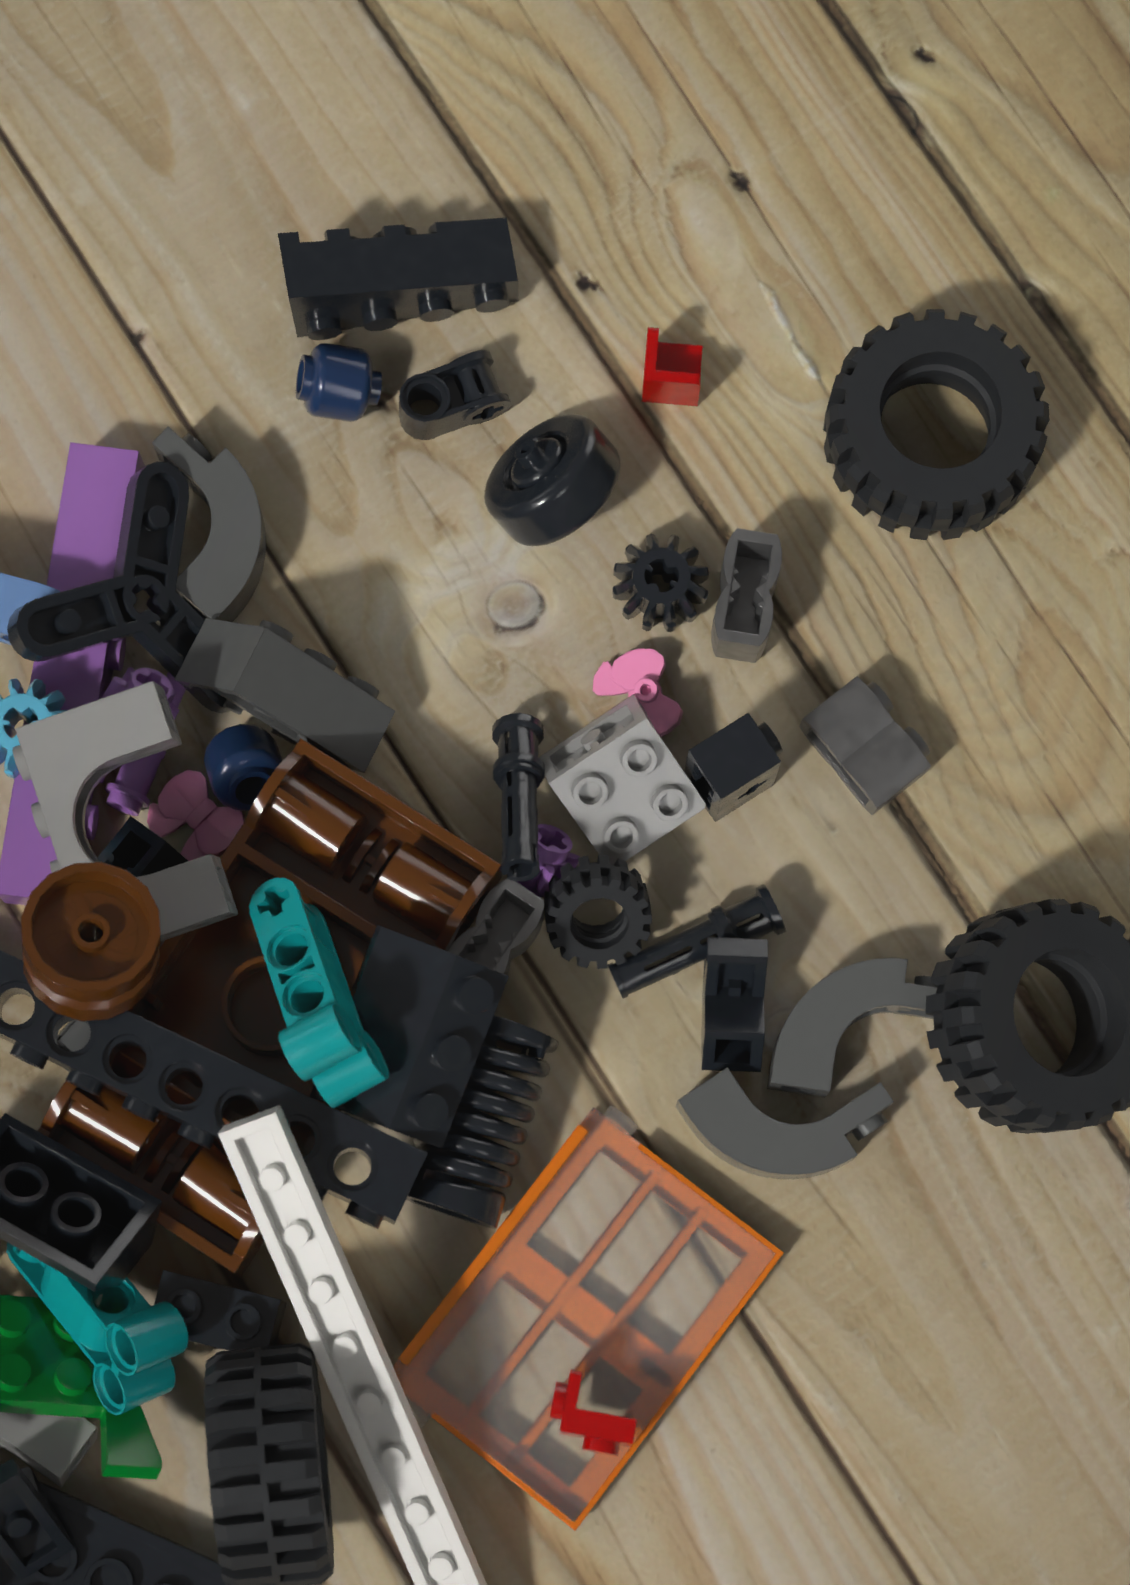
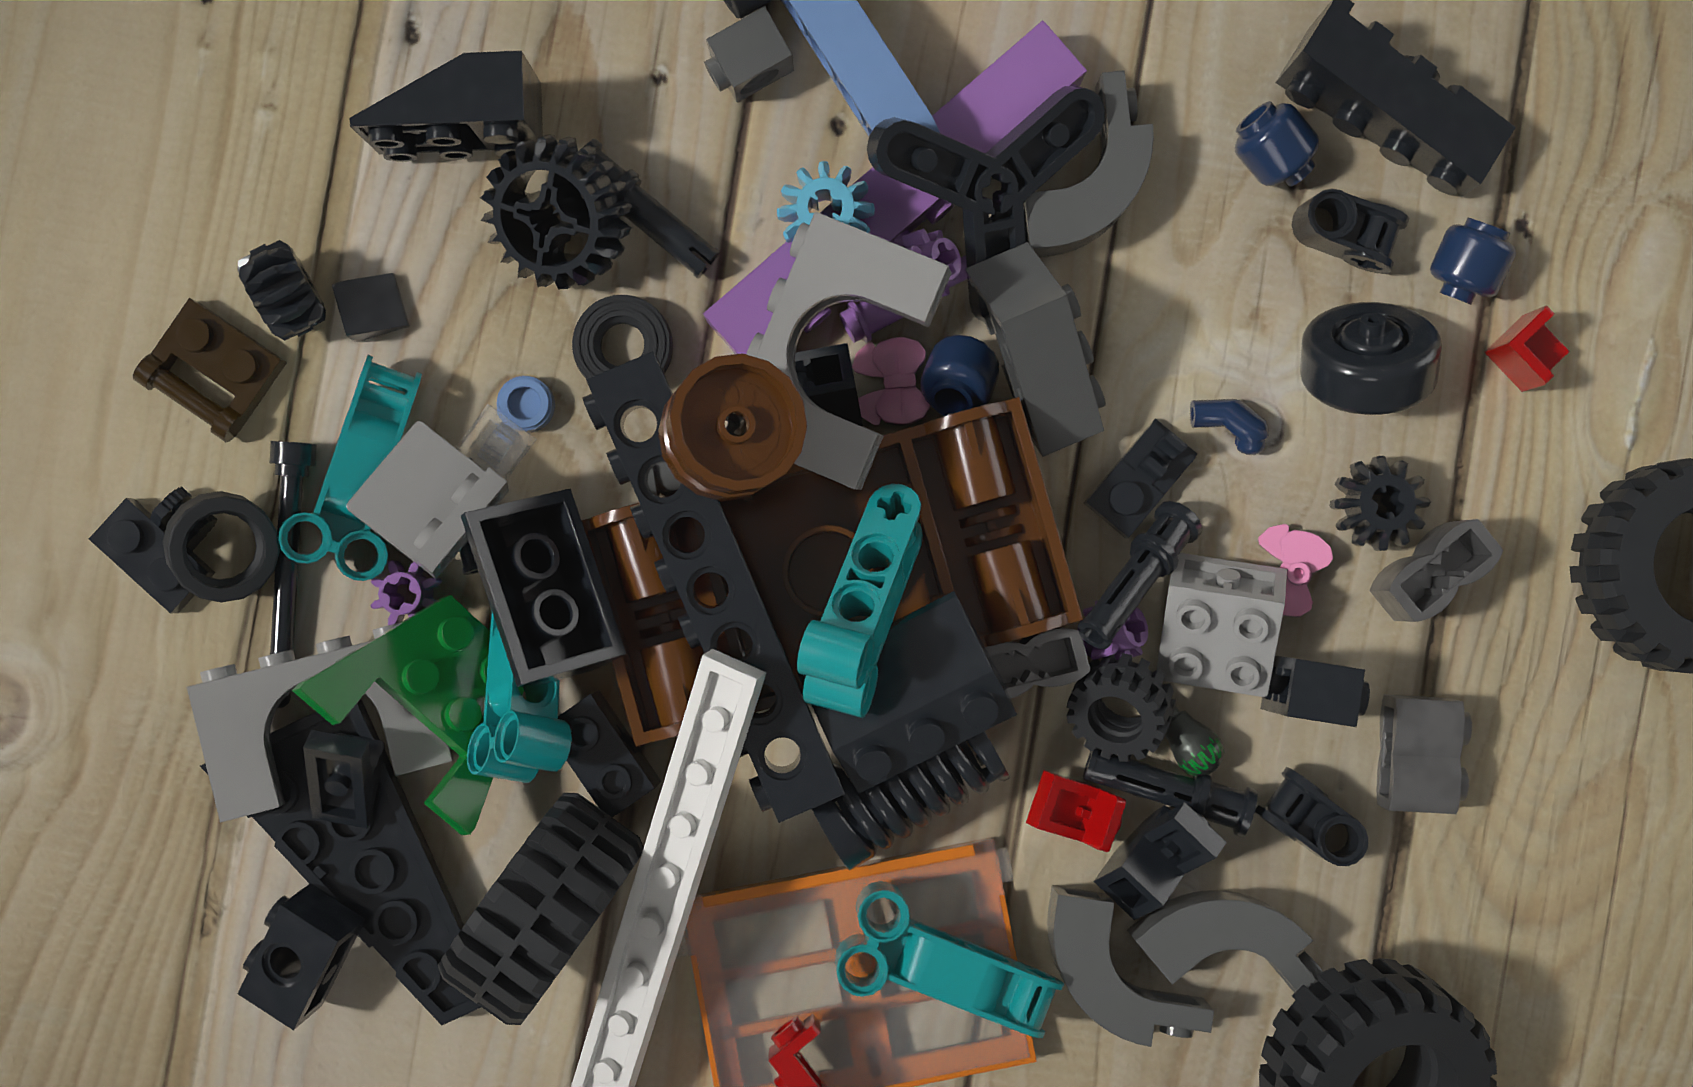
camera: 40 degrees right, 10 degrees up
(460, 725) = (1140, 478): none -> black plate
(492, 614) = (1235, 416): none -> dark blue arm
(566, 341) = (1473, 260): none -> dark blue head
(637, 1025) = (1076, 811): none -> red bracket
(641, 1235) = (944, 967): none -> teal piece
(683, 893) = (1194, 745): none -> pearl dark grey piece
(824, 869) = (1306, 814): none -> black piece

